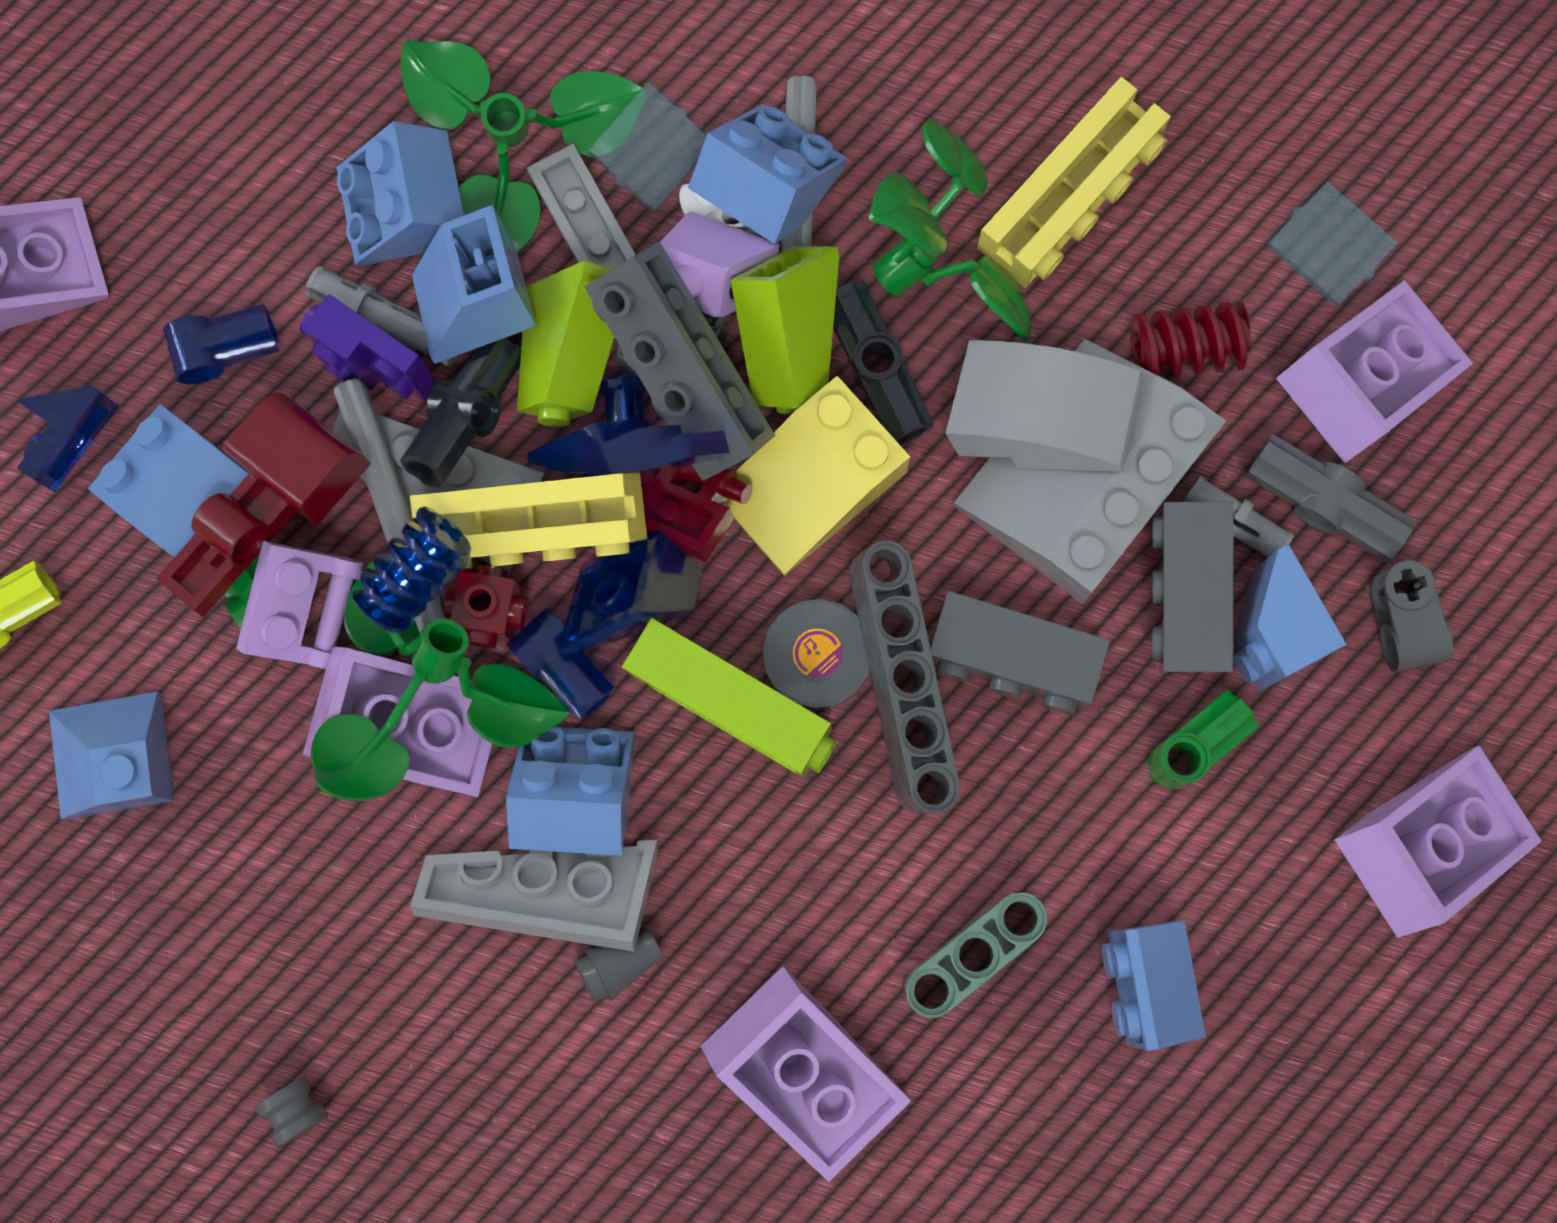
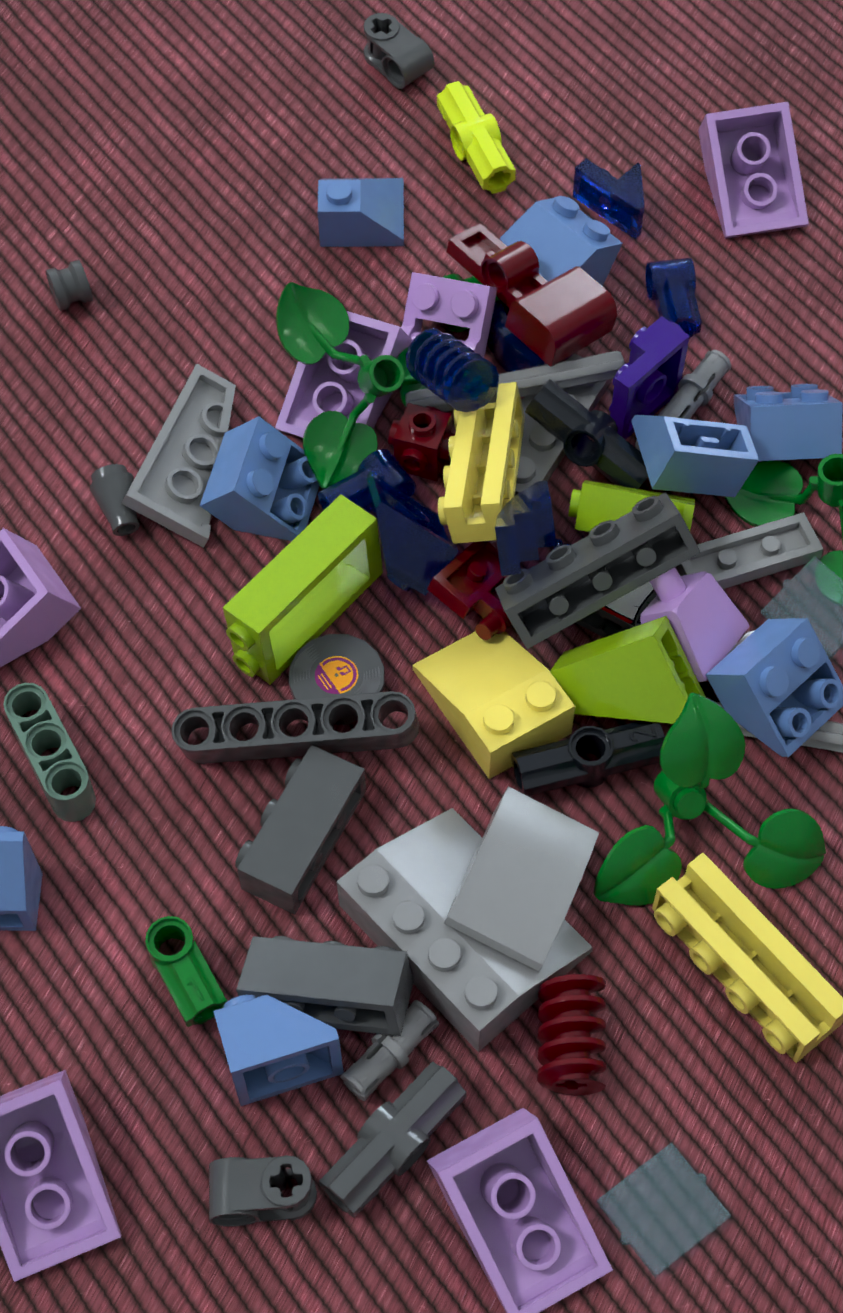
camera: 95 degrees right, 20 degrees down
(336, 525) = (506, 347): none -> clear blue slope

